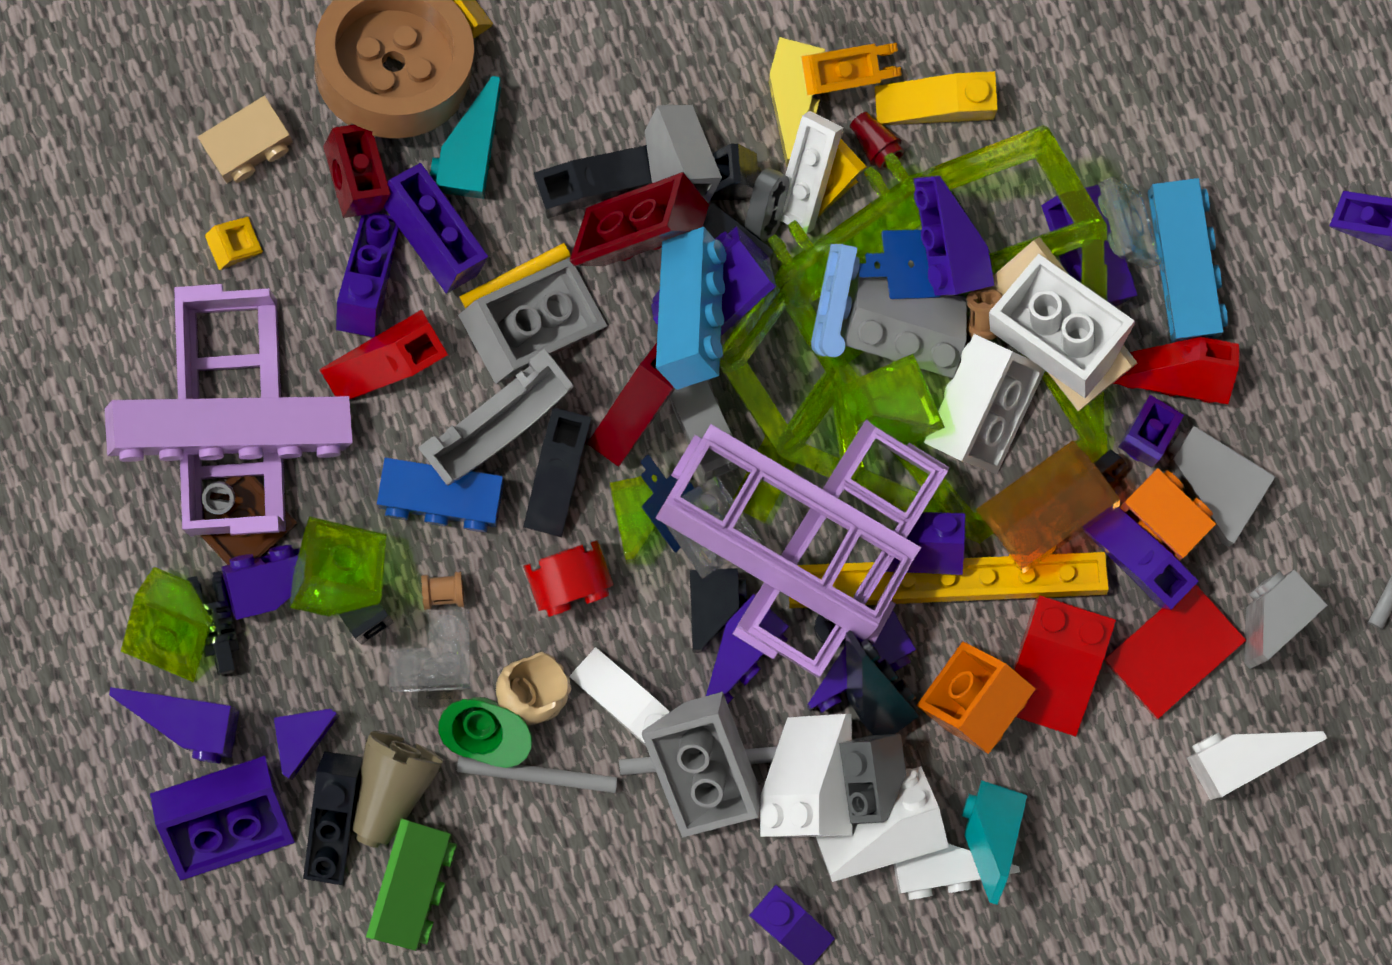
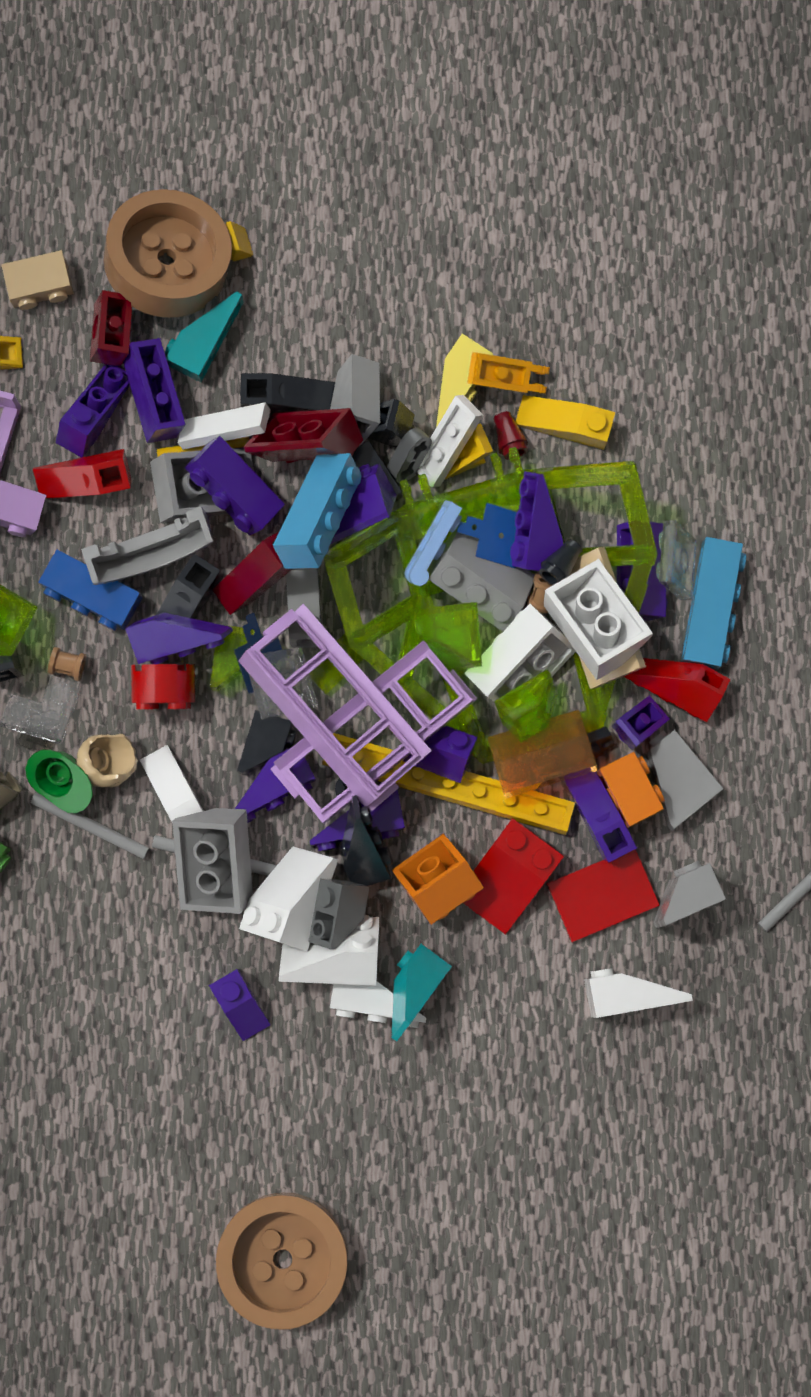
camera: 20 degrees right, 0 degrees up
(535, 242) = (227, 424): none -> white tile
(555, 514) = (170, 634): none -> dark purple slope
(571, 310) = (234, 486): none -> dark purple brick
(994, 273) = (560, 563): none -> black cone
(1012, 457) = (528, 706): none -> clear neon green slope

